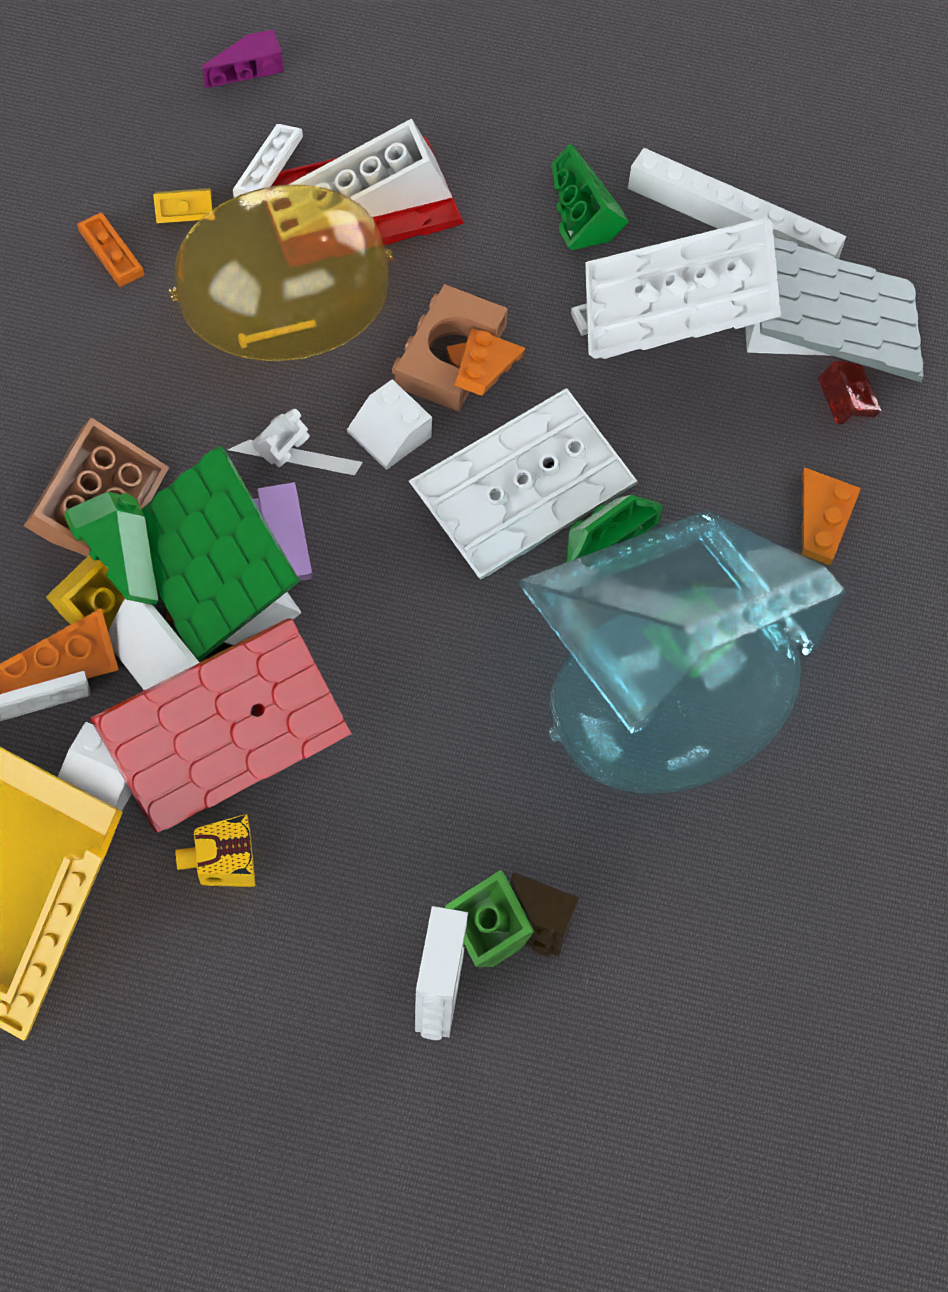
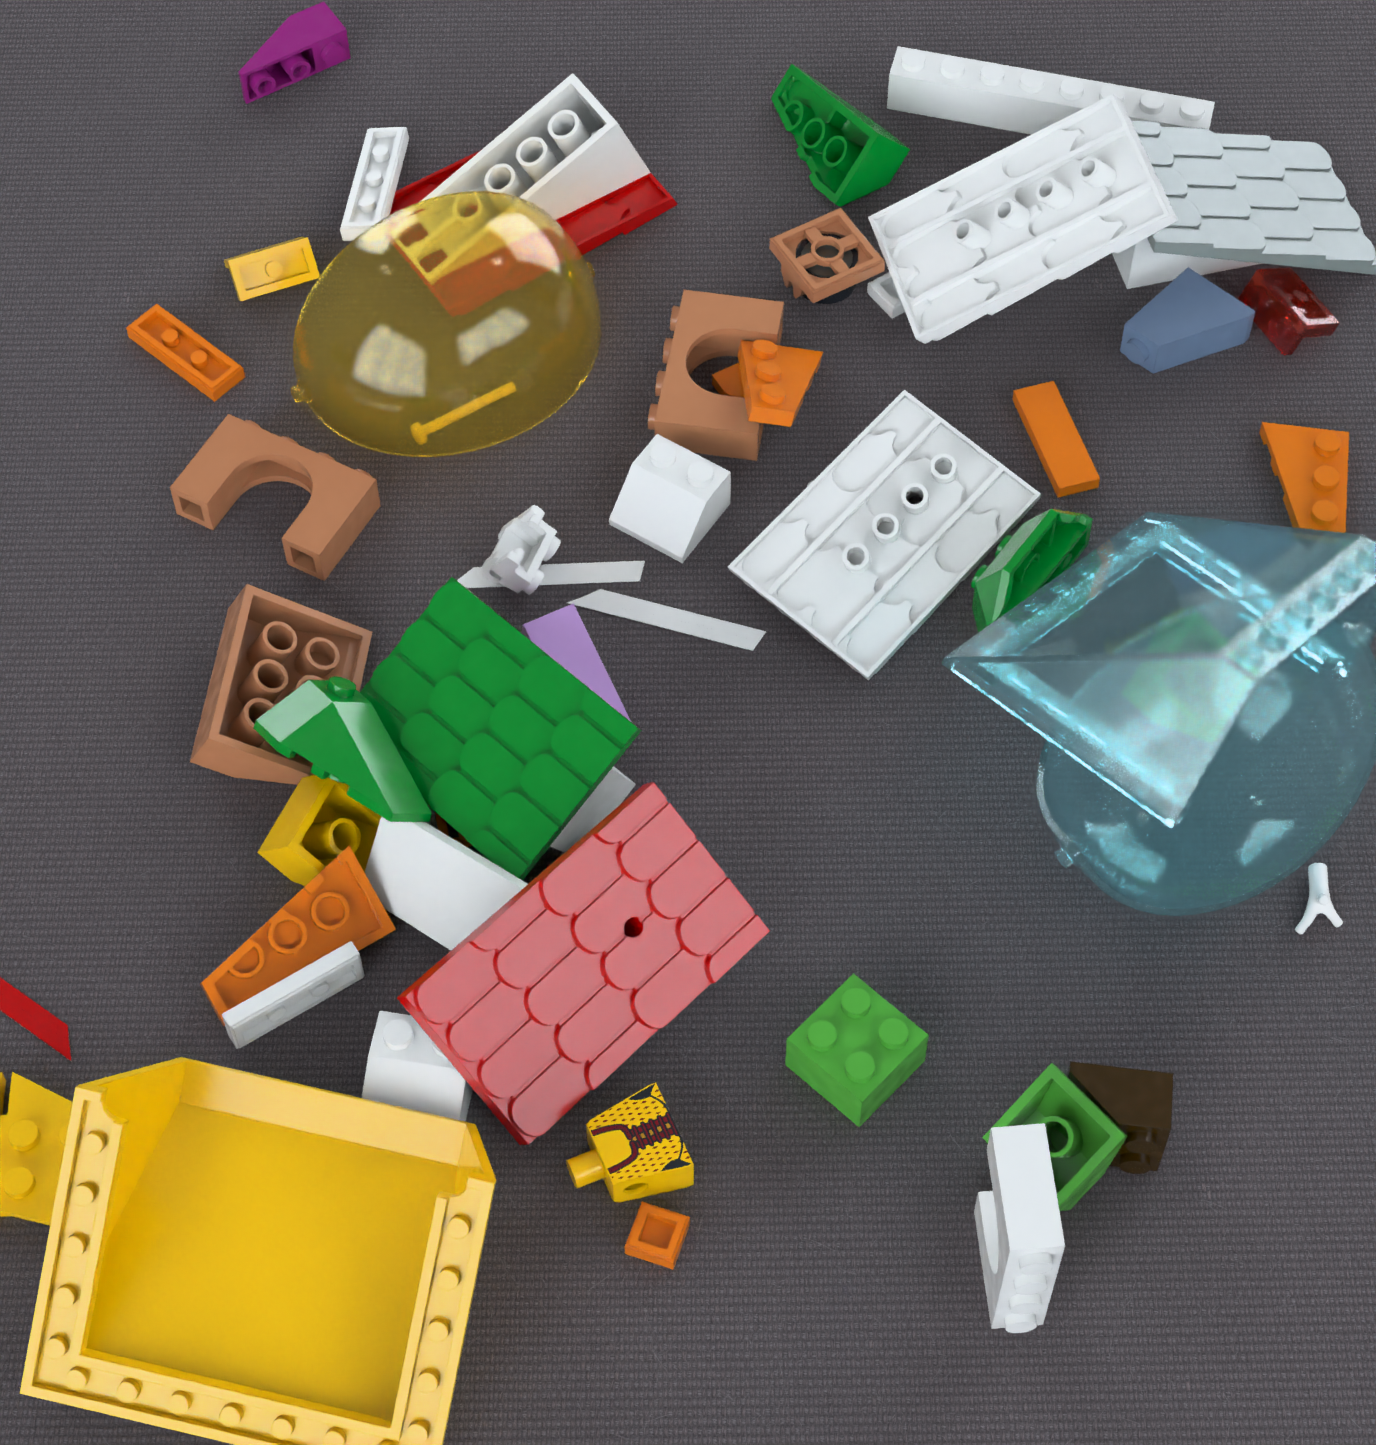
camera: 10 degrees left, 5 degrees down
(125, 329) = (246, 455): none -> nougat arch
(220, 913) = (657, 1235): none -> orange tile
(366, 506) = (671, 618): none -> white sticker
(386, 825) = (856, 1050): none -> bright green brick
(549, 285) = (829, 258): none -> nougat piece
(661, 445) = (1056, 439): none -> orange tile
(728, 802) = (1319, 898): none -> white bar
(774, 386) = (1185, 324): none -> sand blue slope

